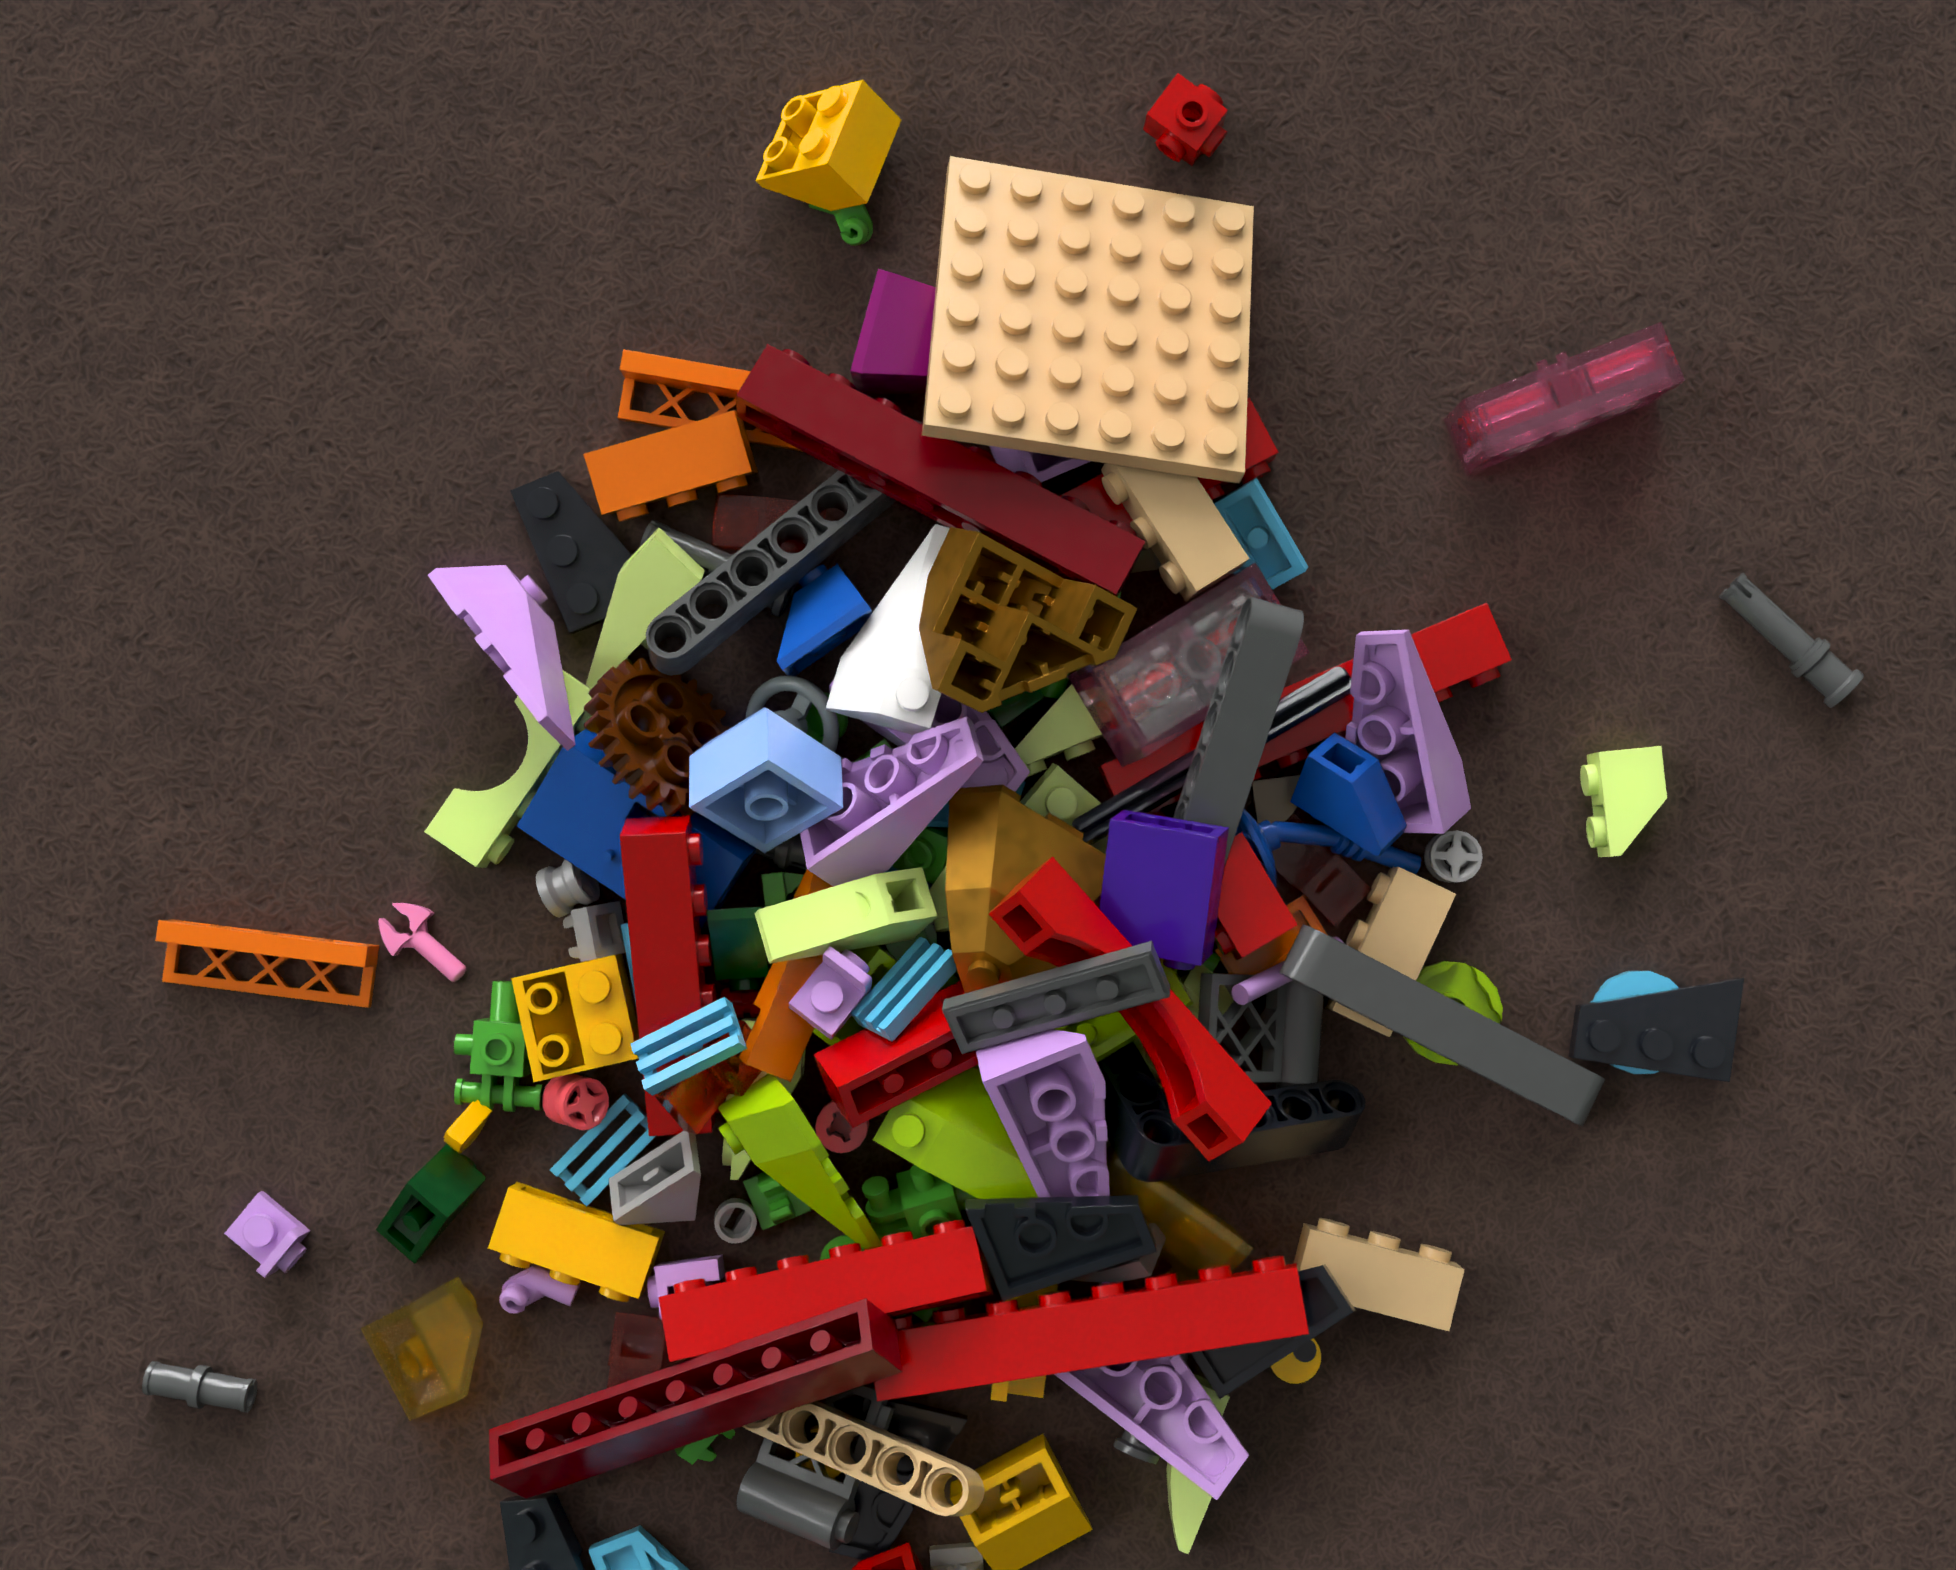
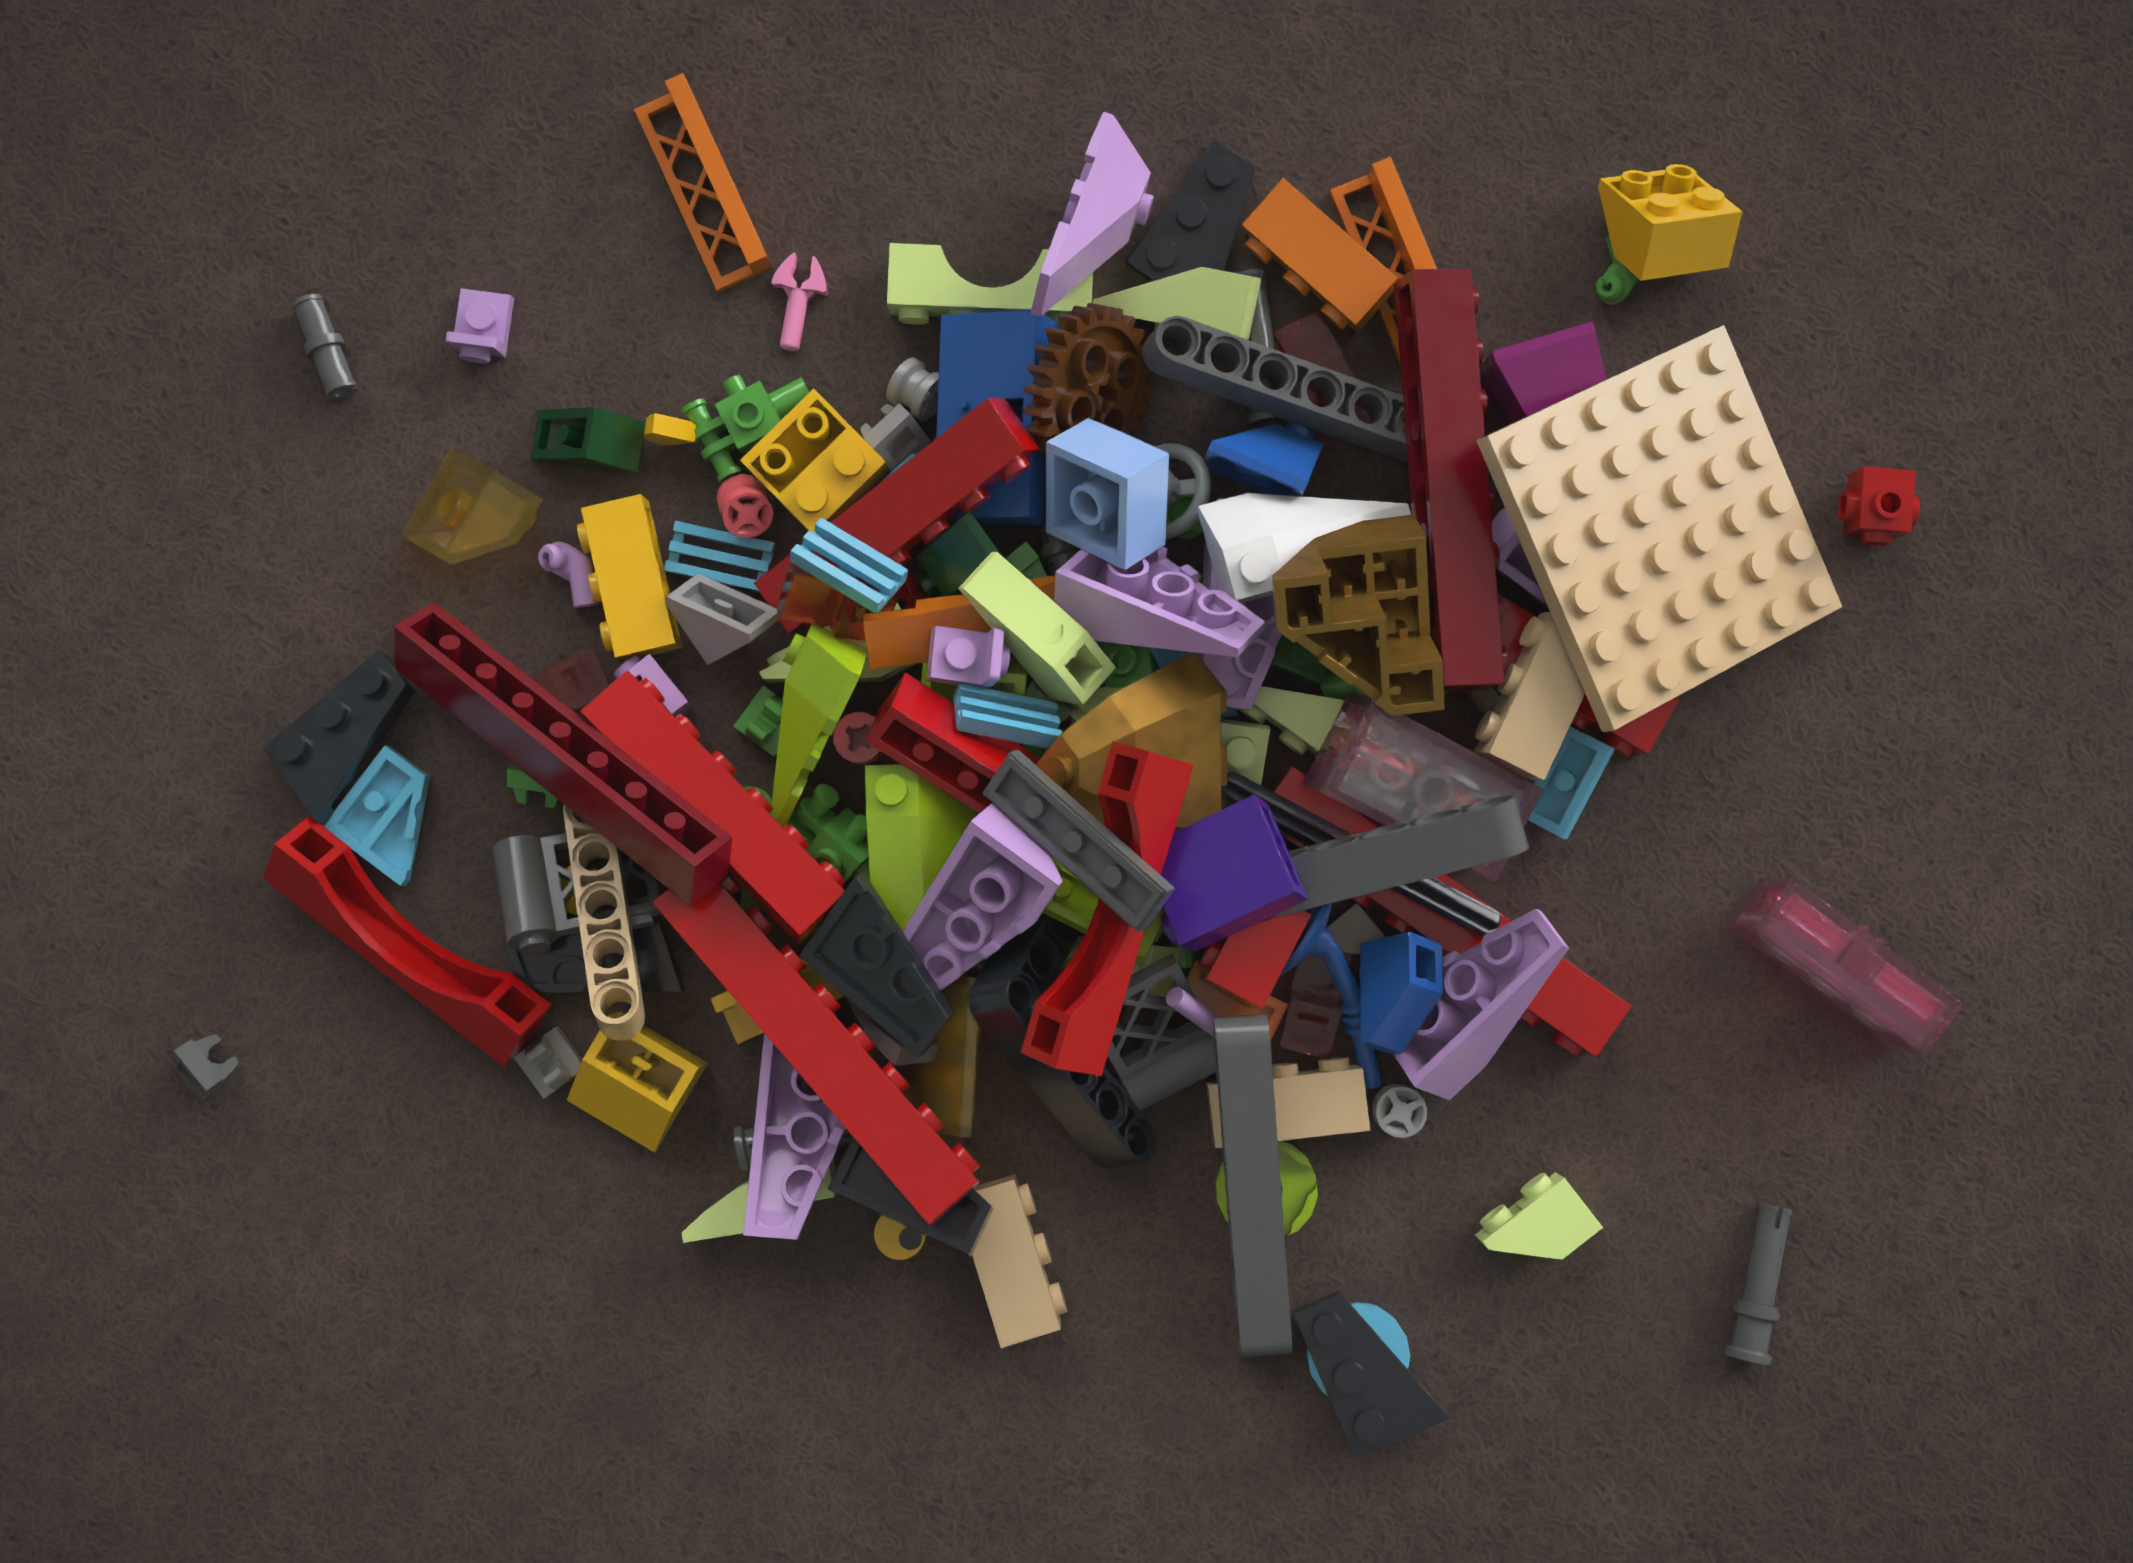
camera: 65 degrees right, 0 degrees up
(744, 1225) = (731, 708): light grey hinge -> none

